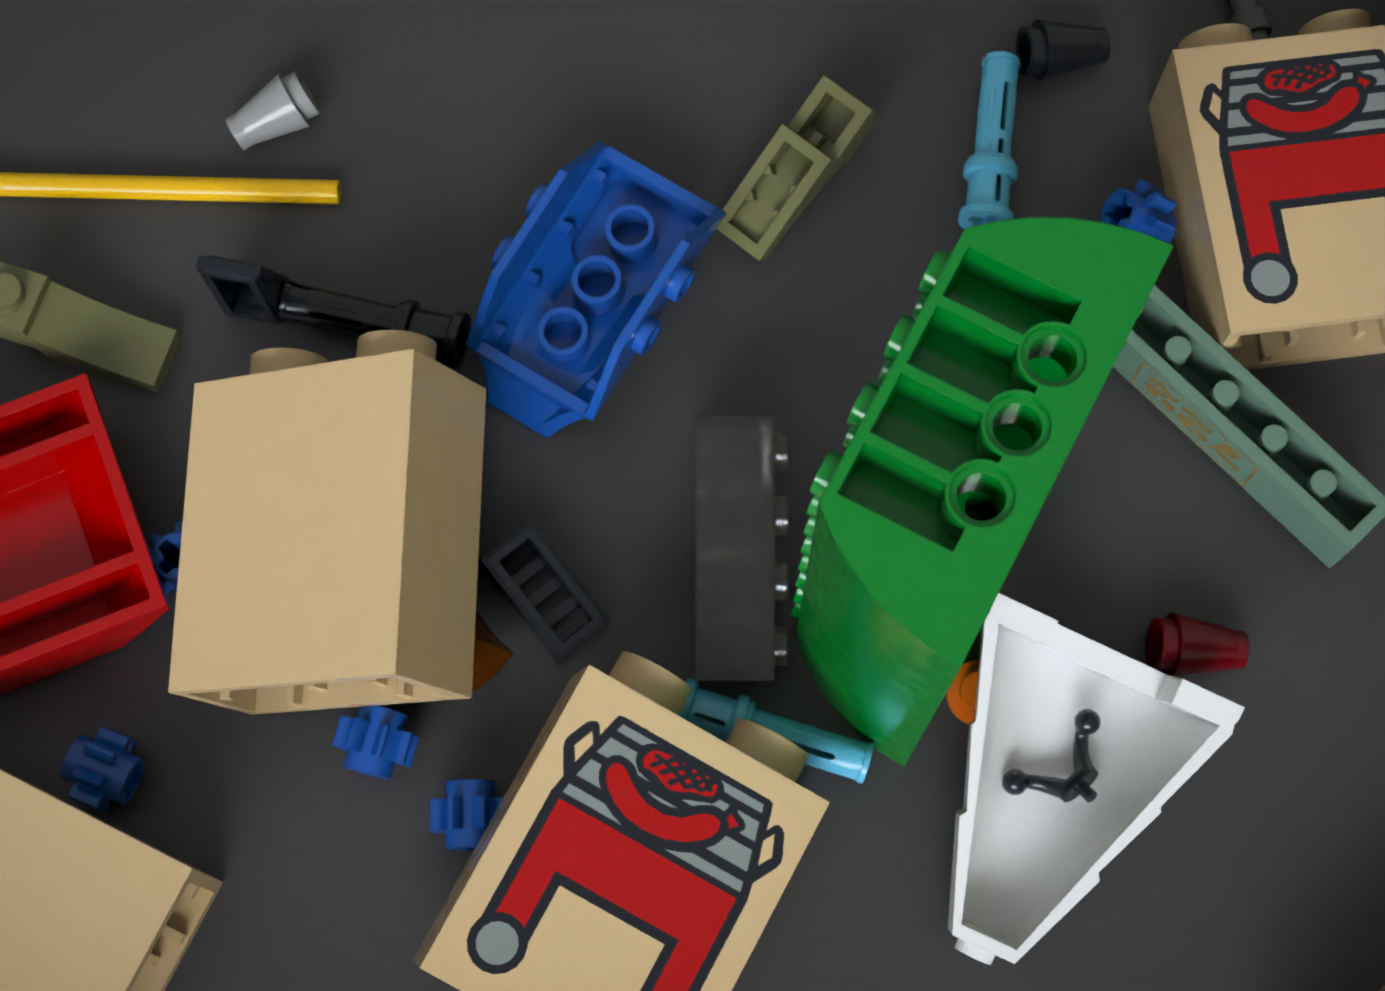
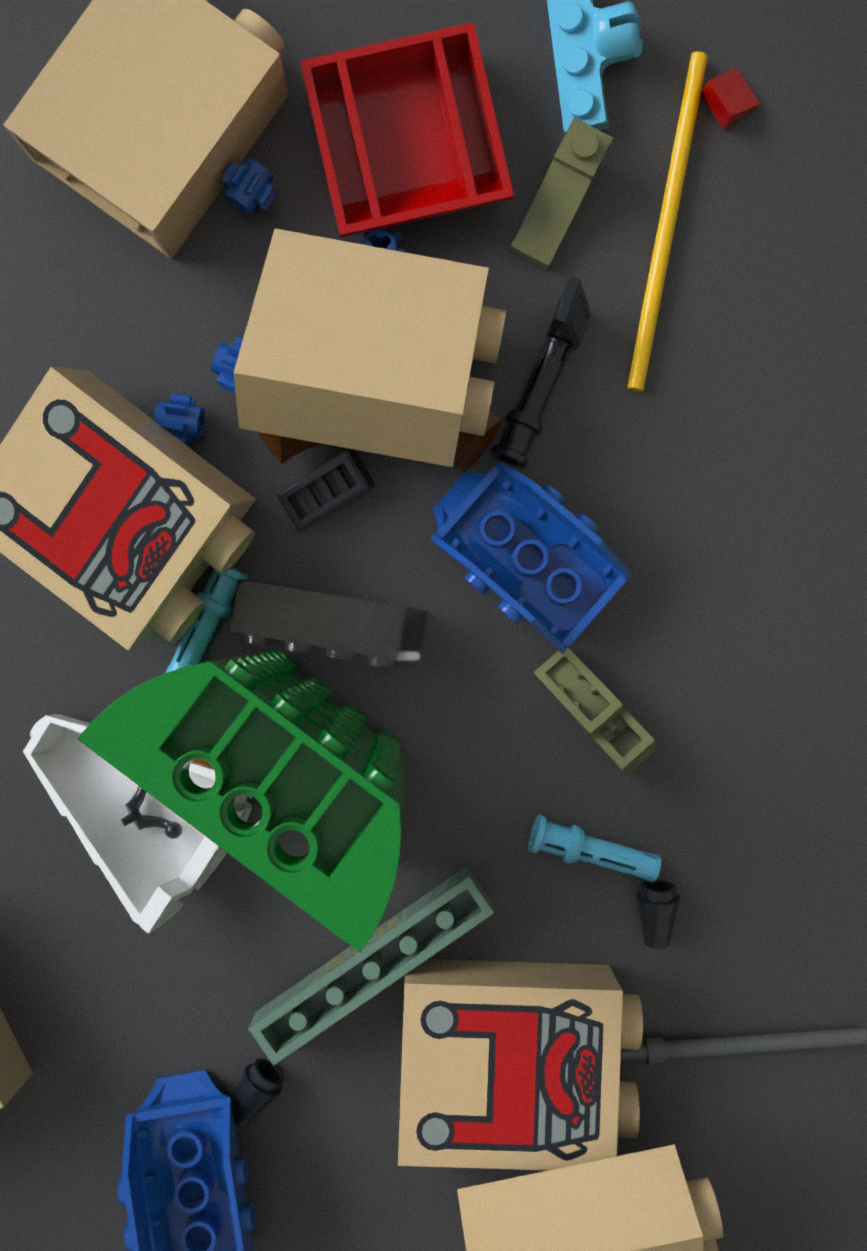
camera: 100 degrees right, 15 degrees up
(275, 110) = (702, 352): light grey cone -> none
(1141, 211) = (516, 939): blue gear -> none
(1193, 646) = (215, 910): dark red cone -> none

